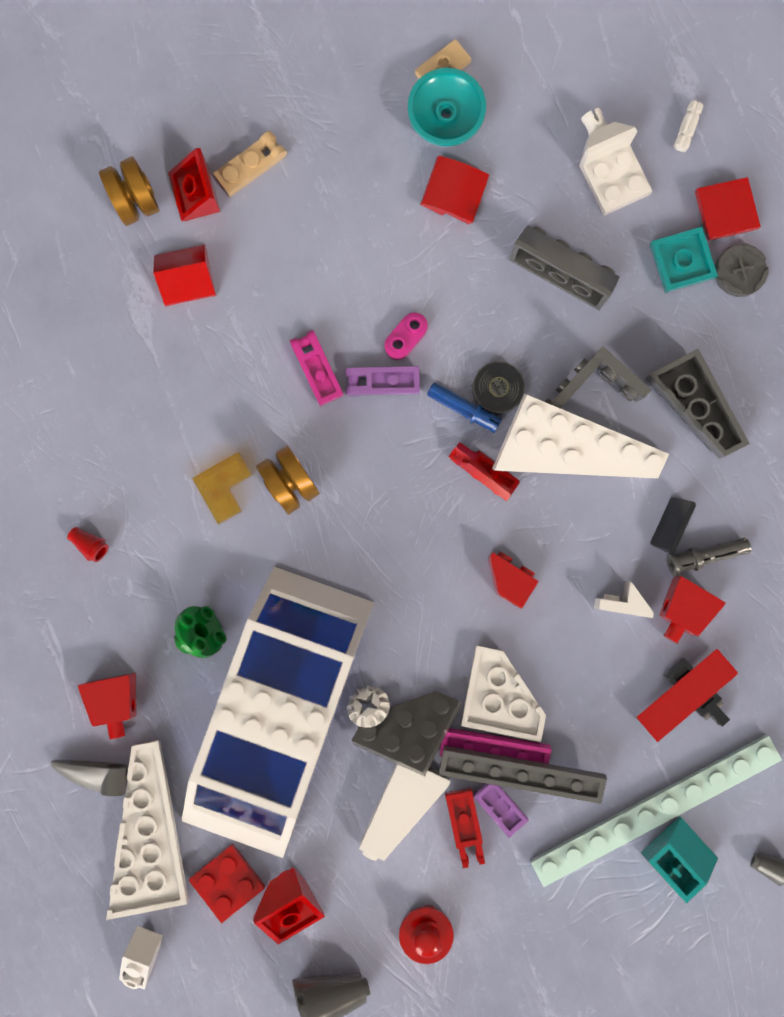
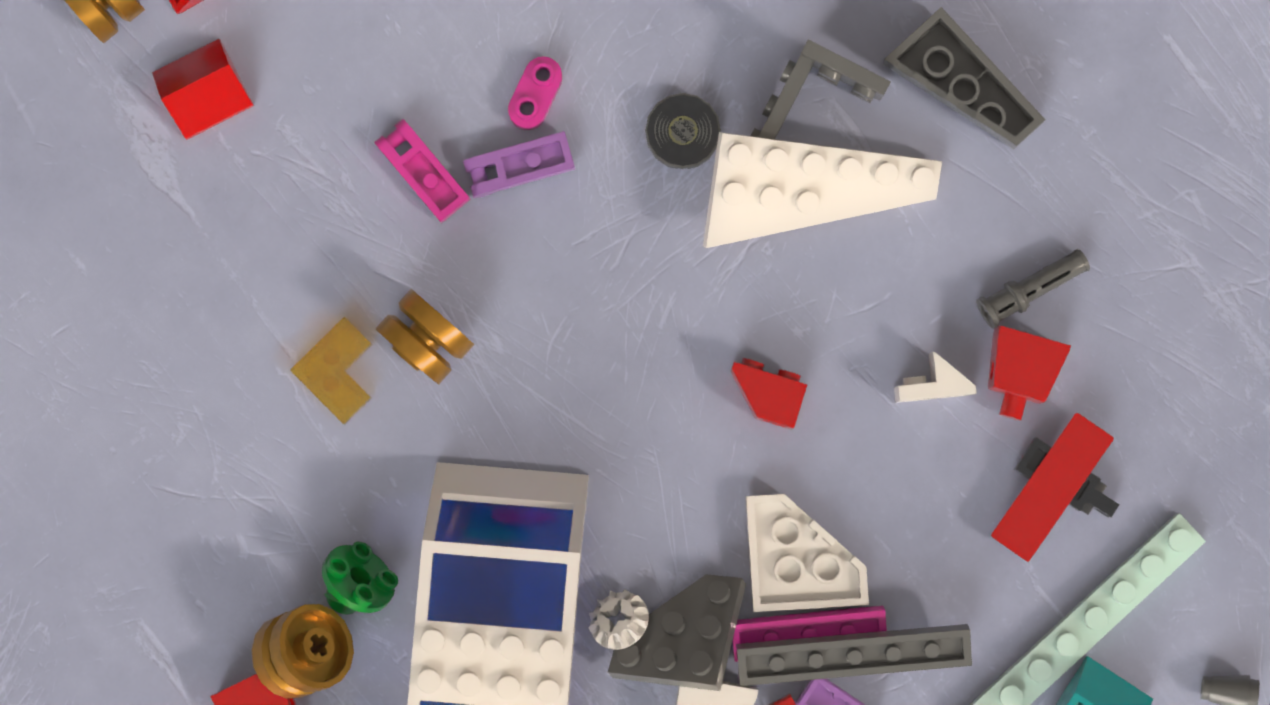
camera: 15 degrees left, 0 degrees up
(89, 545) = (170, 500): red cone -> none
(147, 671) = (302, 651): none -> pearl gold wheel
(464, 407) = (642, 171): blue axle -> none
(480, 468) = (687, 250): red hinge -> none
(672, 524) = (972, 257): black slope -> none

